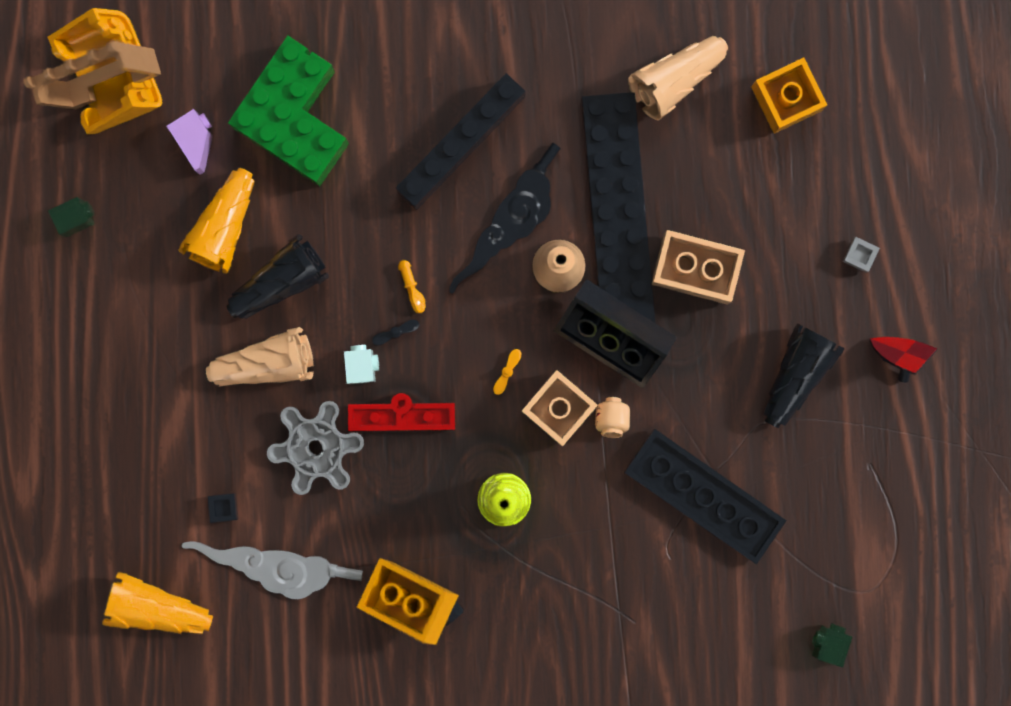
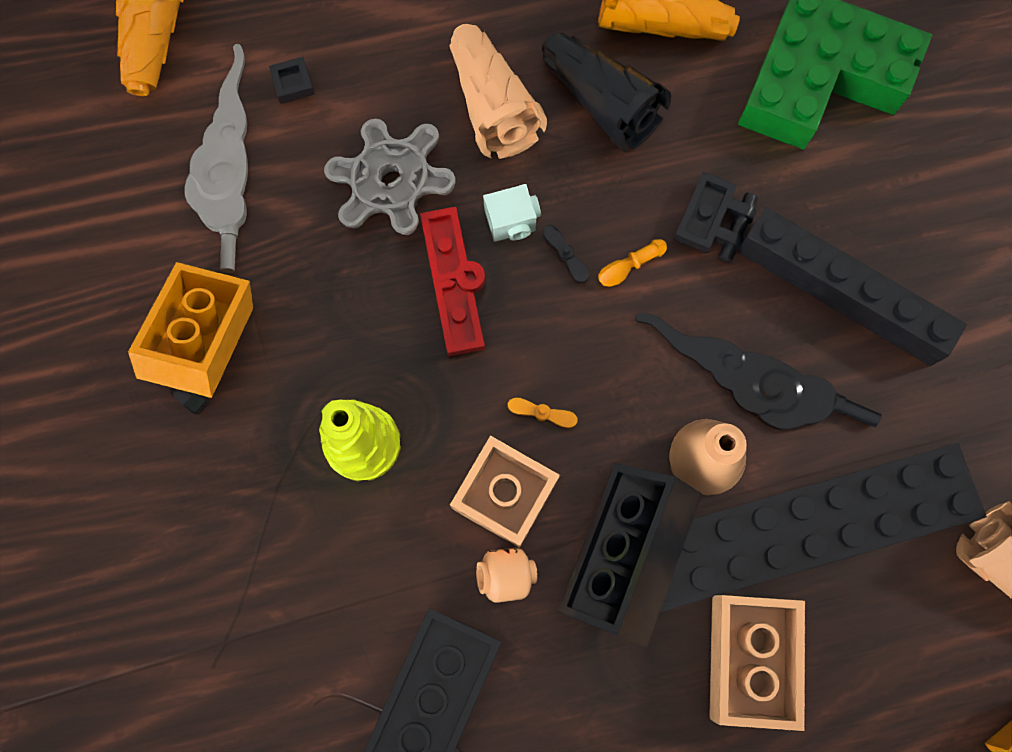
camera: 80 degrees right, 10 degrees down
(386, 227) = (705, 212): none -> black plate

